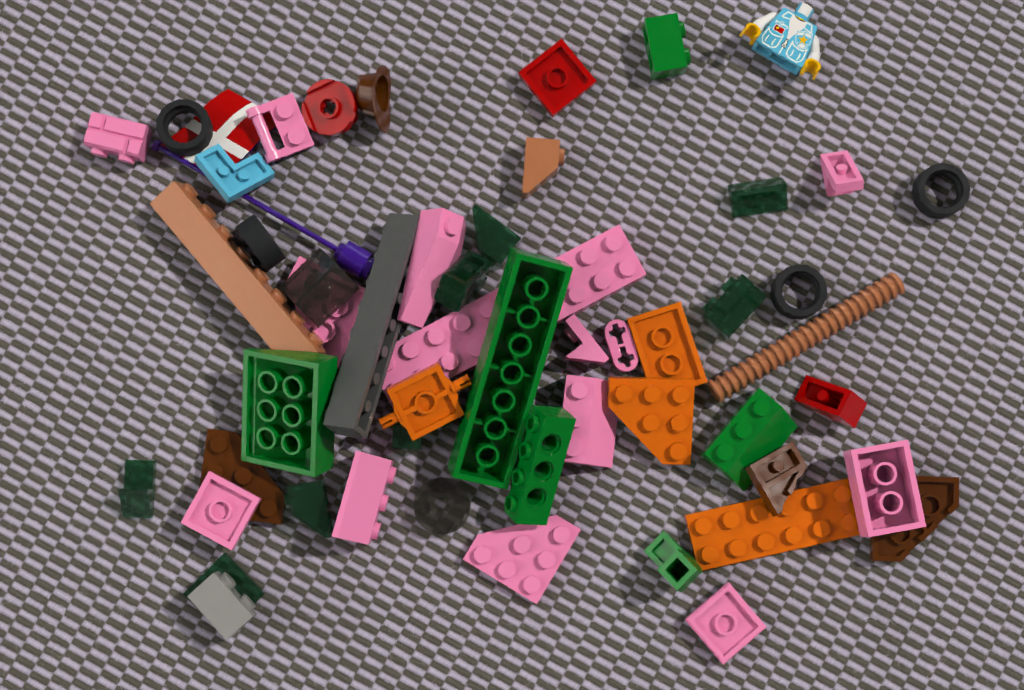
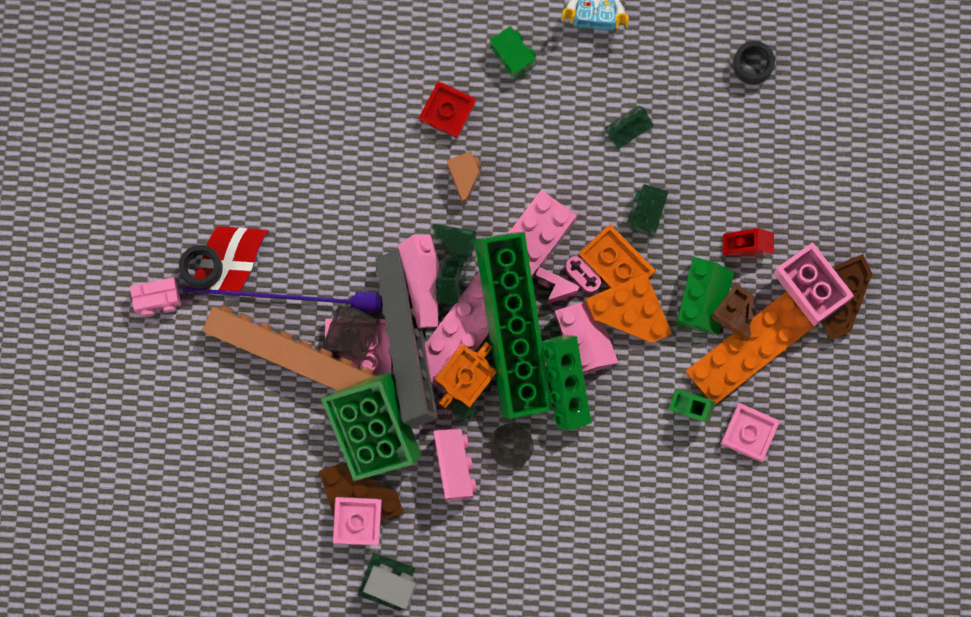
camera: 15 degrees left, 5 degrees down
(138, 489) = (289, 537): clear green slope -> none
(230, 178) = (252, 286): medium azure plate -> none
(260, 242) = (294, 321): black tyre -> none
(289, 125) = (273, 230): bright pink plate -> none
(310, 506) = (418, 489): clear green slope -> none
(316, 101) = (297, 192): red plate -> none
(373, 96) = (323, 182): reddish brown piece -> none
(523, 554) = (585, 453): bright pink plate -> none
(806, 336) = (709, 207): nougat piece -> none
(807, 272) = (689, 162): black tyre -> none
(840, 173) = (678, 83): bright pink slope -> none

